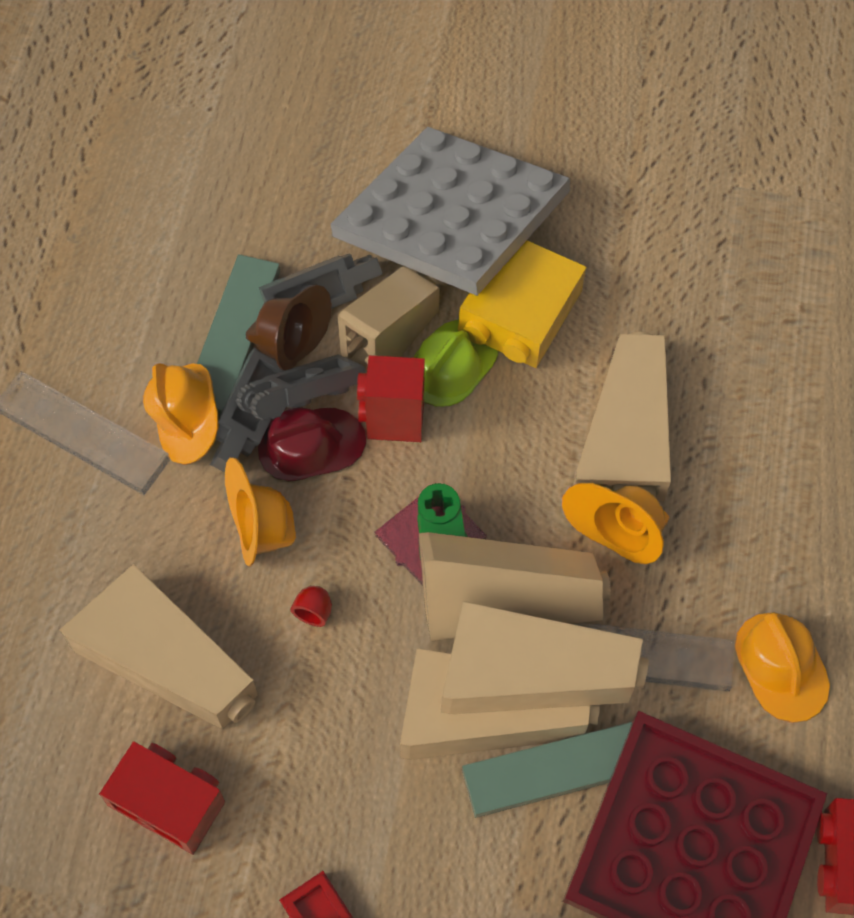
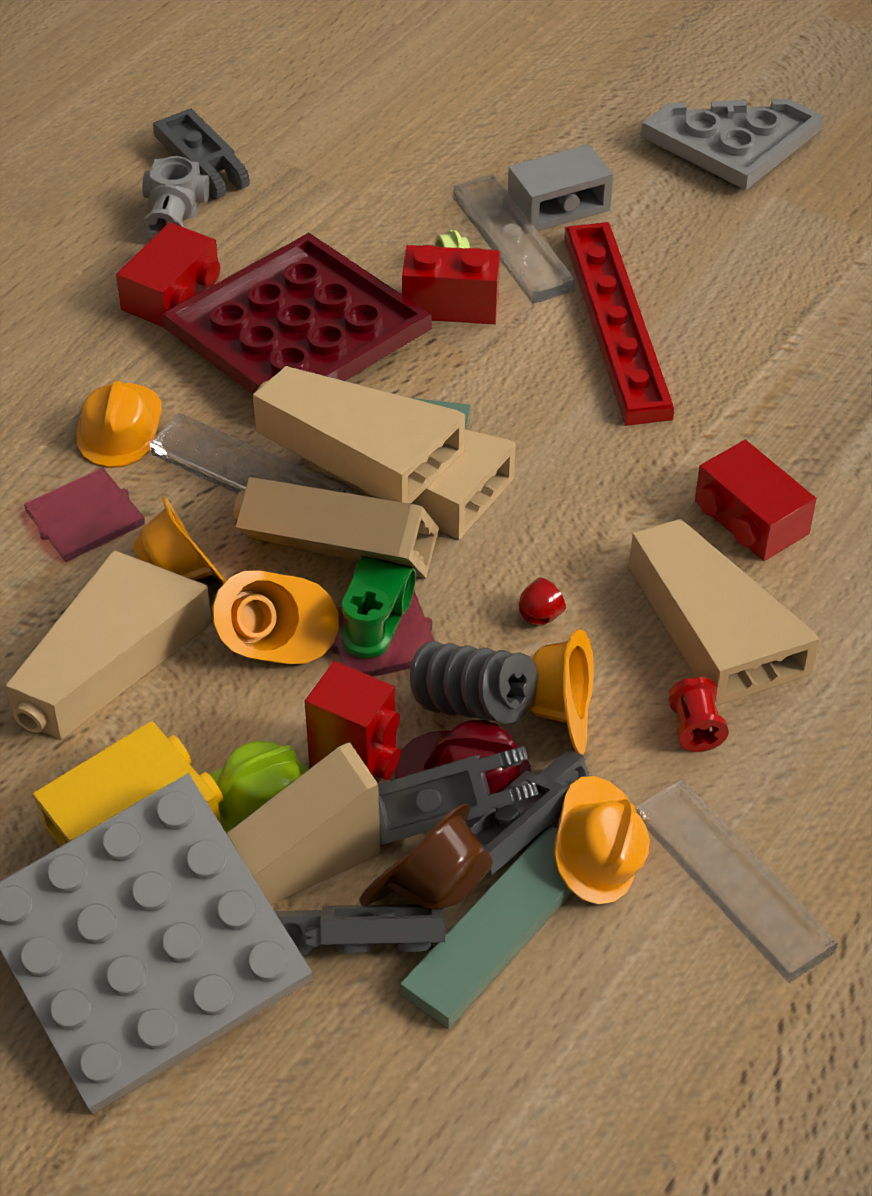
camera: 155 degrees left, 15 degrees down
(146, 545) = (697, 714): none -> red bush
(327, 477) = (473, 681): none -> dark grey piece
(517, 487) = (275, 617): none -> light orange piece
(739, 553) = (84, 514): none -> clear pink piece

